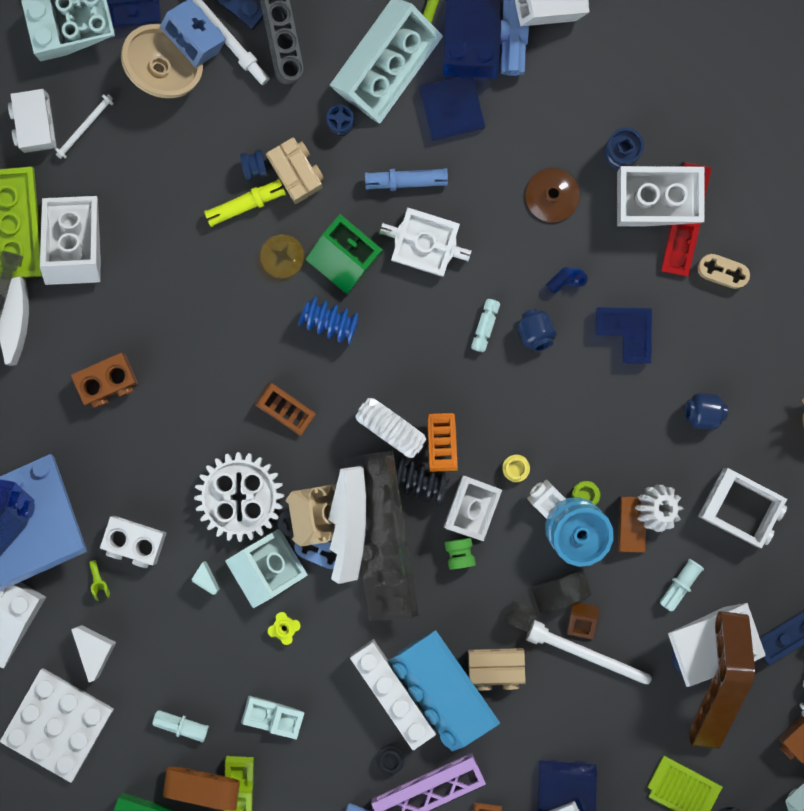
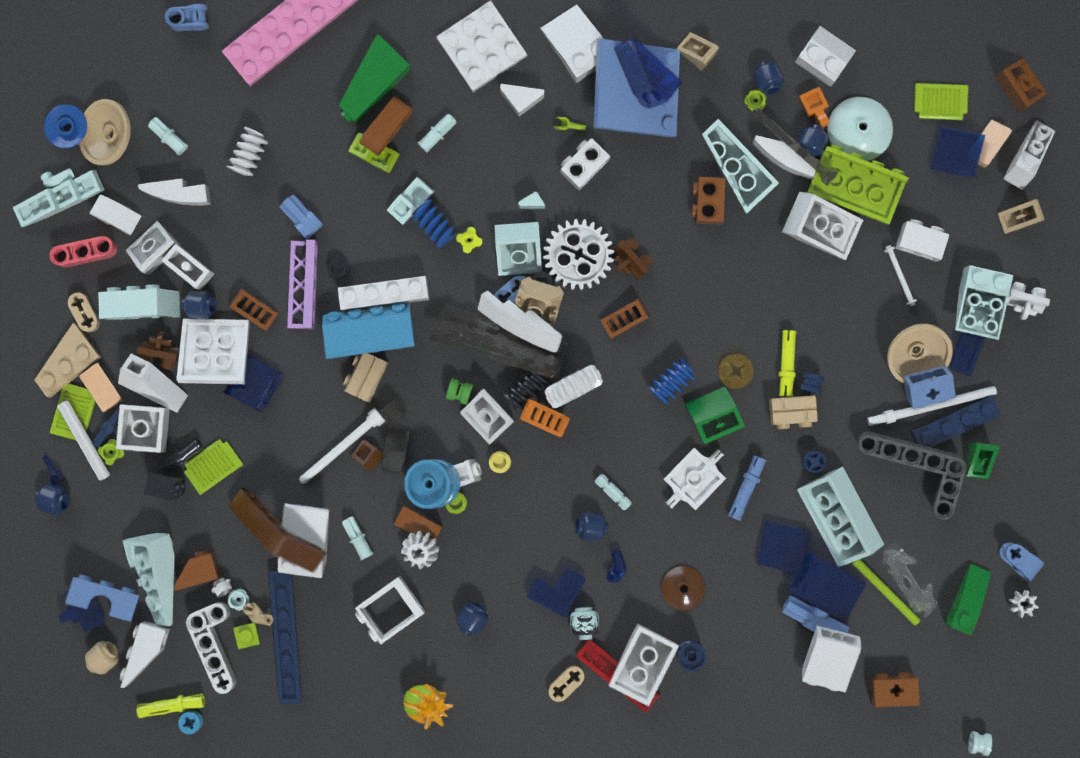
camera: 115 degrees right, 0 degrees up
(52, 361) = (741, 169): none -> light aqua wedge
(218, 435) = (629, 261): none -> reddish brown hips
(286, 676) = (433, 223): none -> blue piece
(646, 284) = (584, 622): none -> head

